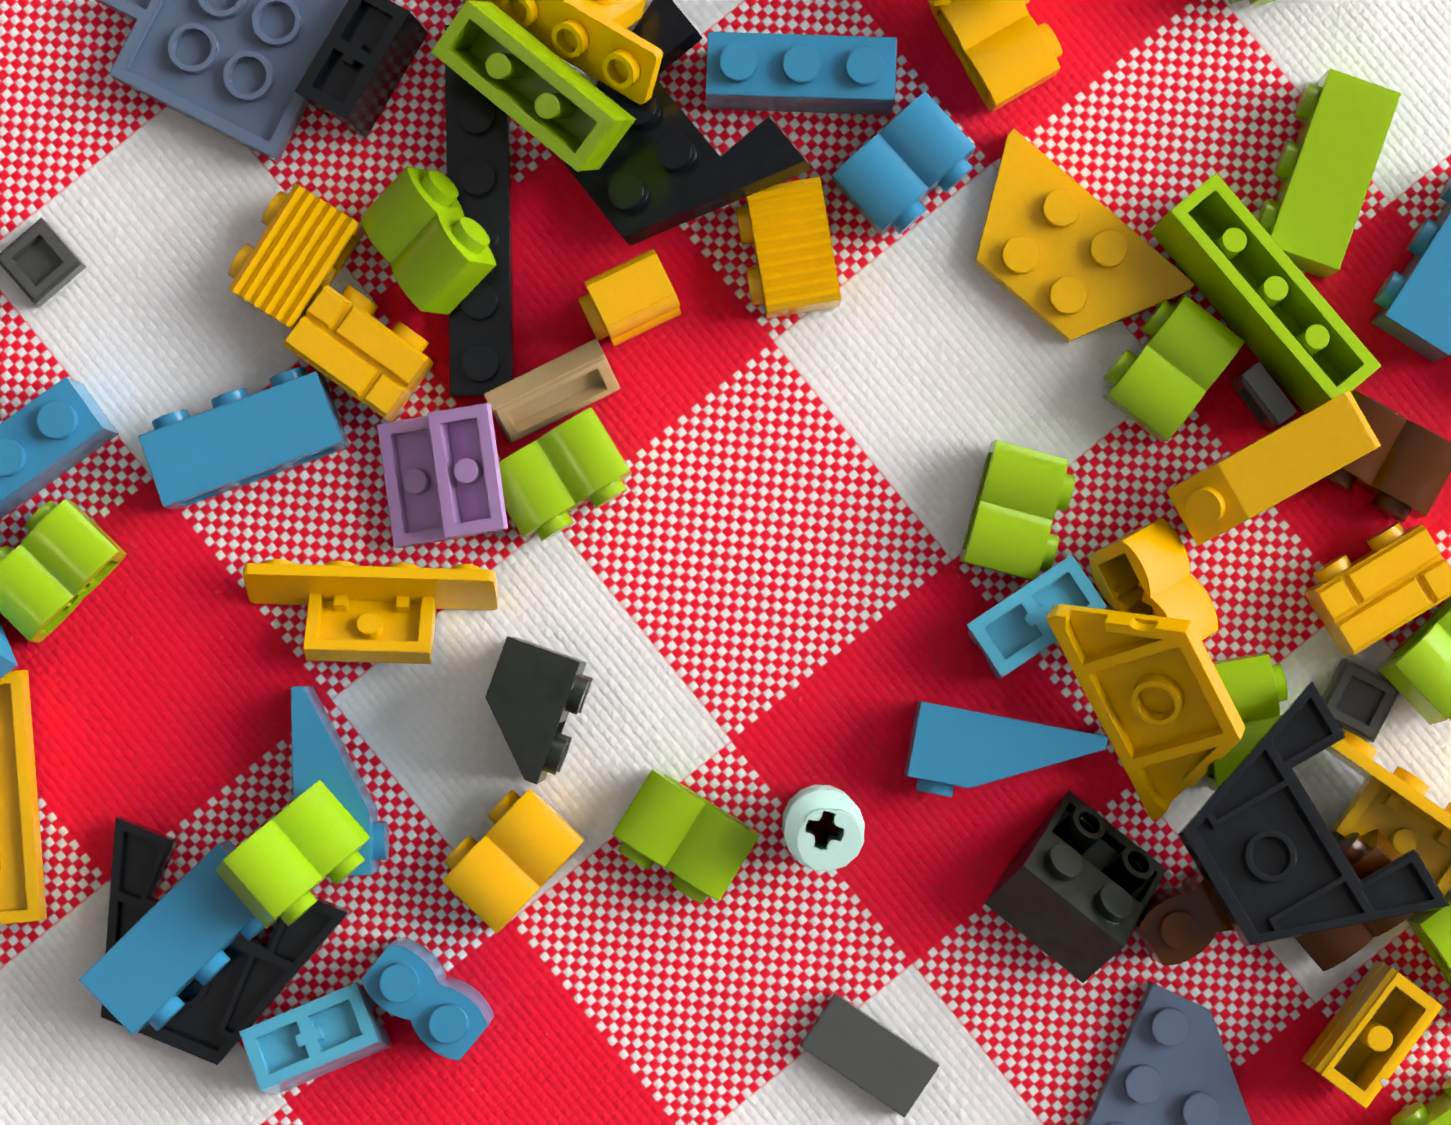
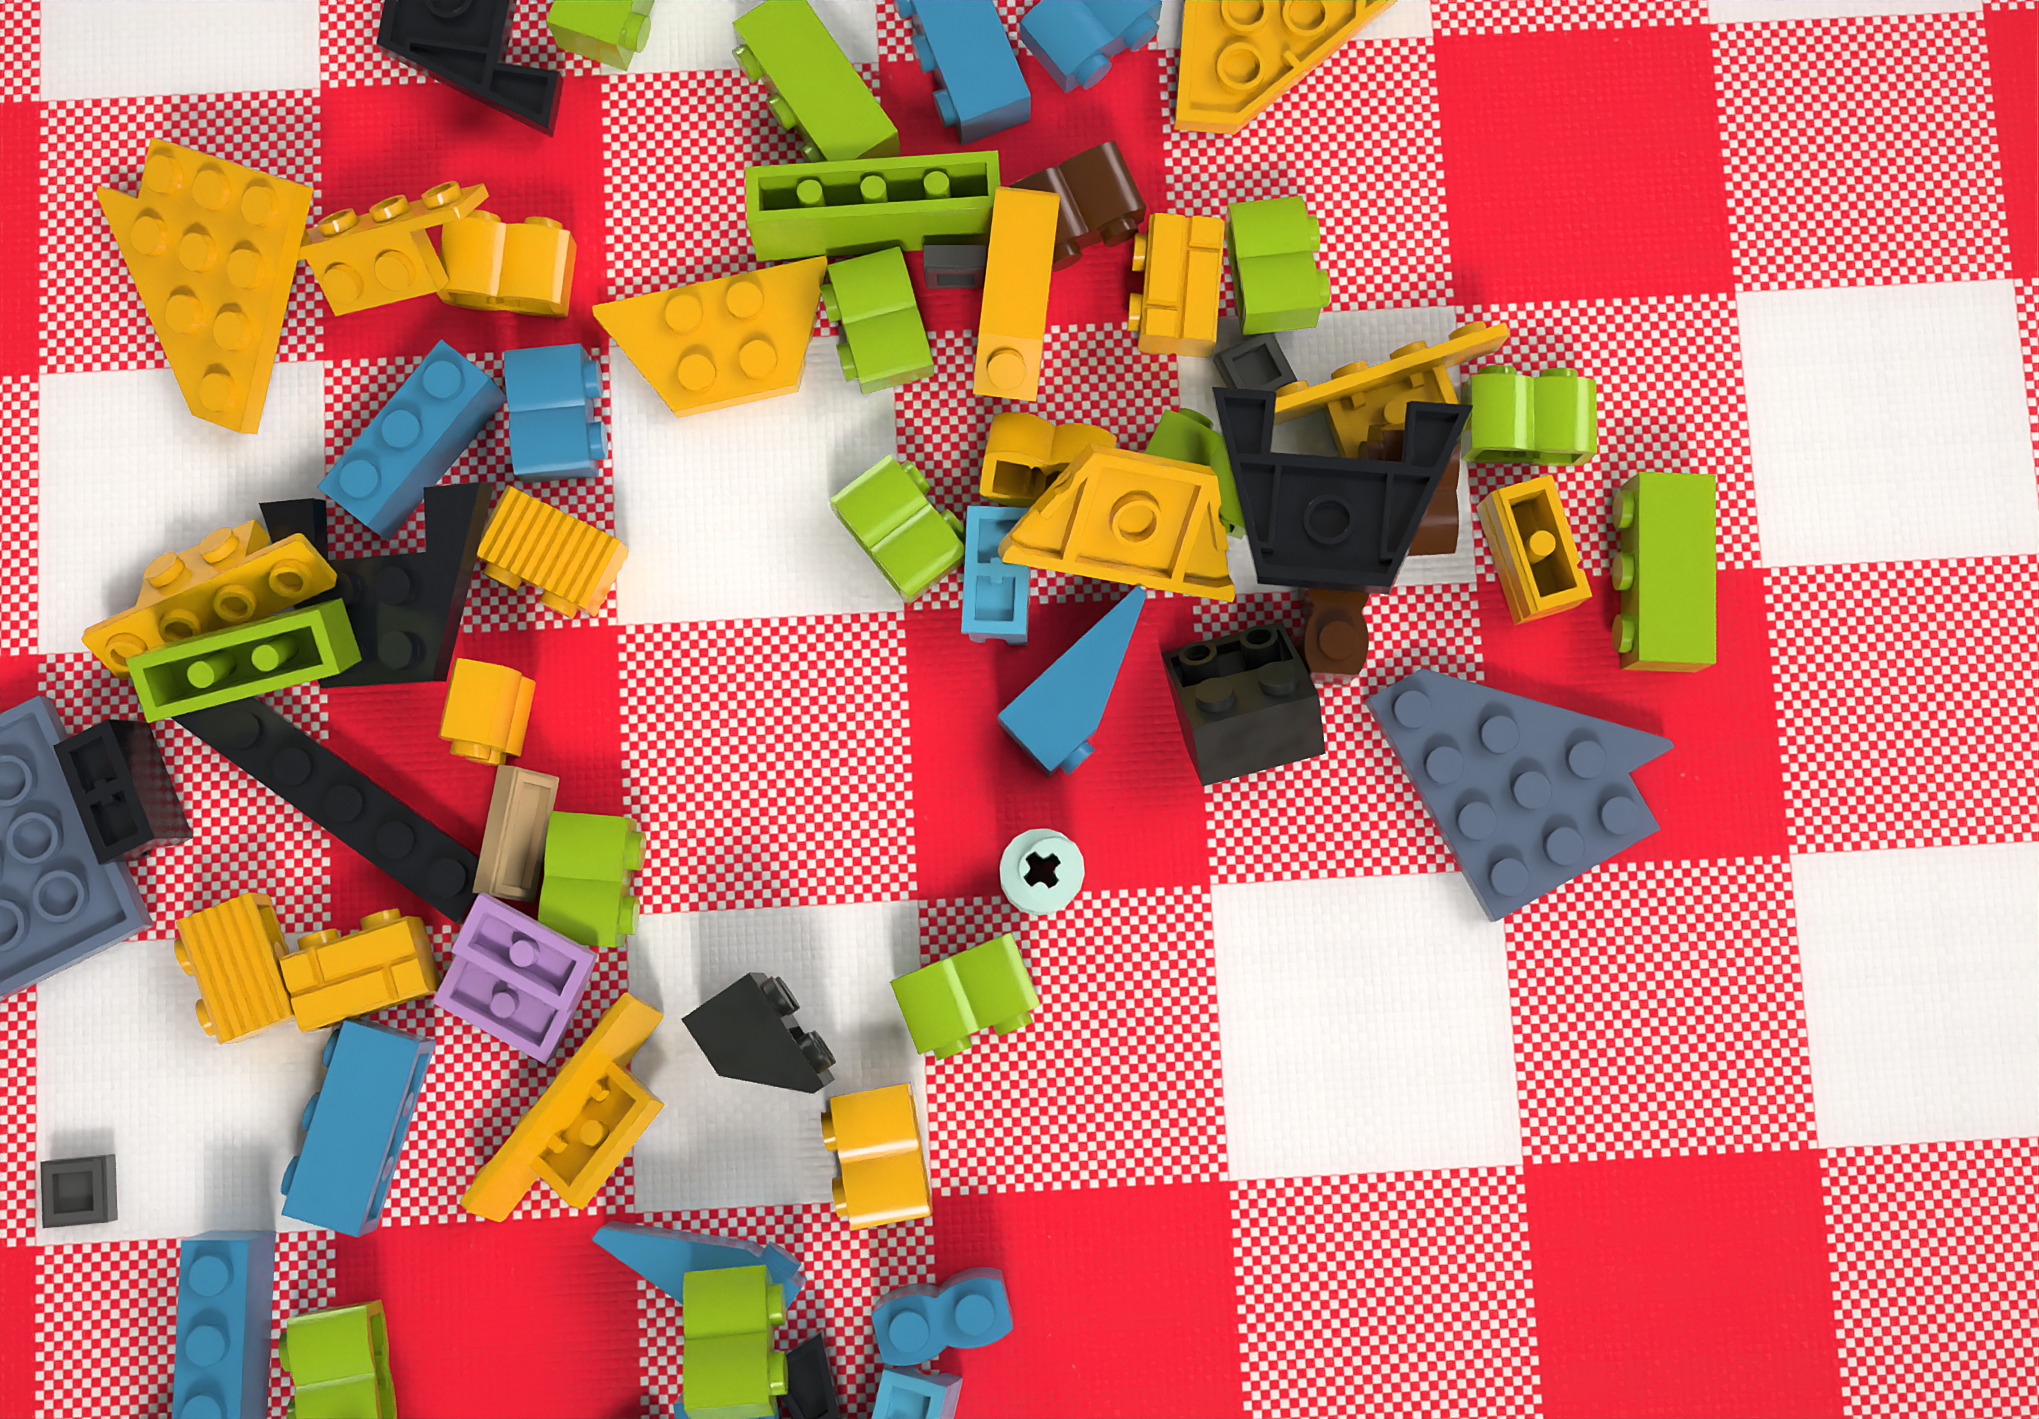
camera: 60 degrees left, 5 degrees down
(428, 240) = (309, 843): lime brick -> none
(869, 1054) = (1260, 974): dark grey tile -> none

